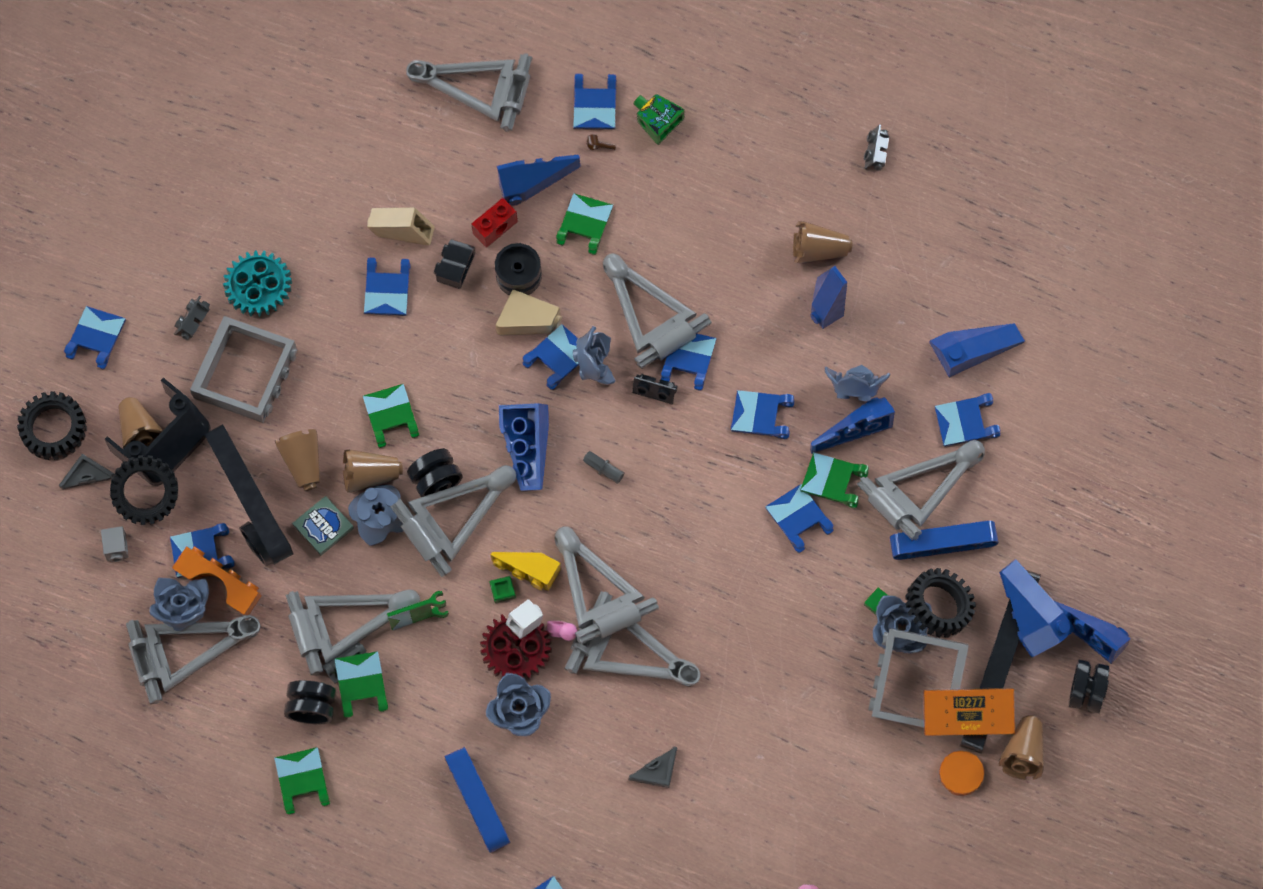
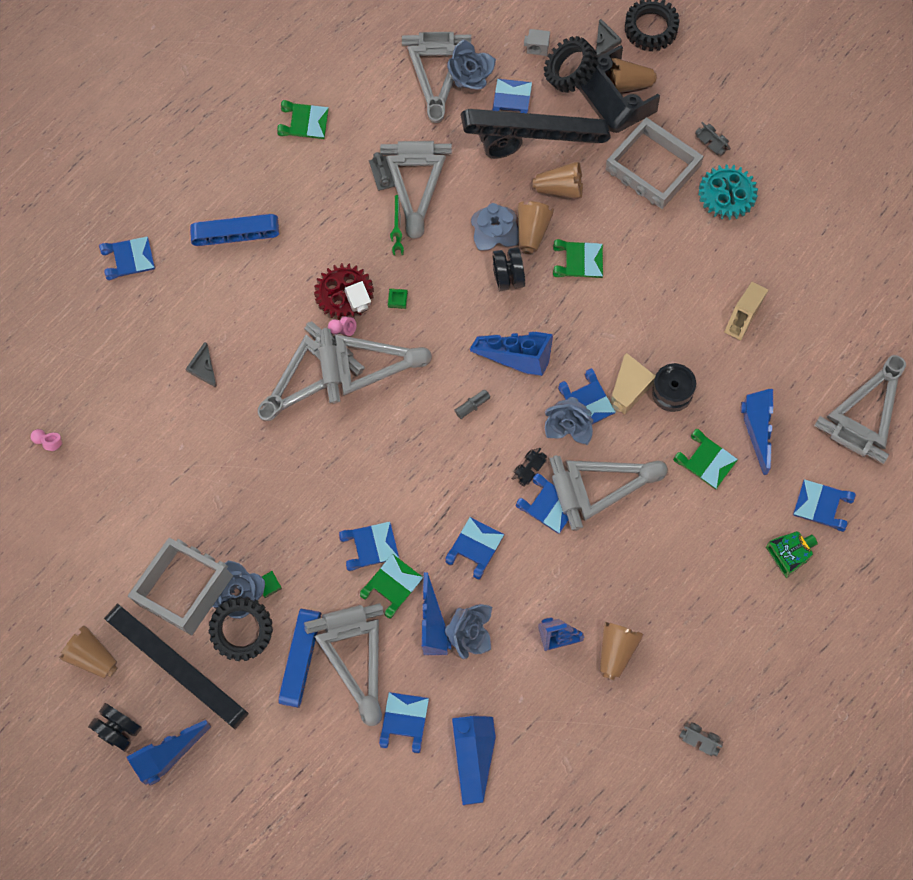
camera: 110 degrees right, 0 degrees up
(96, 332) = (721, 73): blue flag -> none
(239, 595) = (498, 87): orange arch -> none
(310, 702) = (354, 133): black wheel -> none
(323, 525) = (501, 186): tile -> none
(360, 679) = (361, 174): green flag -> none
(386, 291) = (691, 287): blue flag -> none
(427, 534) = (460, 251): light grey piece -> none
(454, 264) = (697, 342): black brick -> none
(494, 222) = (726, 383): red brick -> none
(513, 691) = (292, 265): sand blue brick -> none
(534, 567) = (404, 323): yellow slope -> none
(593, 143) = (782, 490): reddish brown hand -> none
(961, 773) = (96, 598): orange tile -> none
(969, 712) = (133, 613): orange tile -> none
(1037, 615) = (196, 703): blue wedge -> none

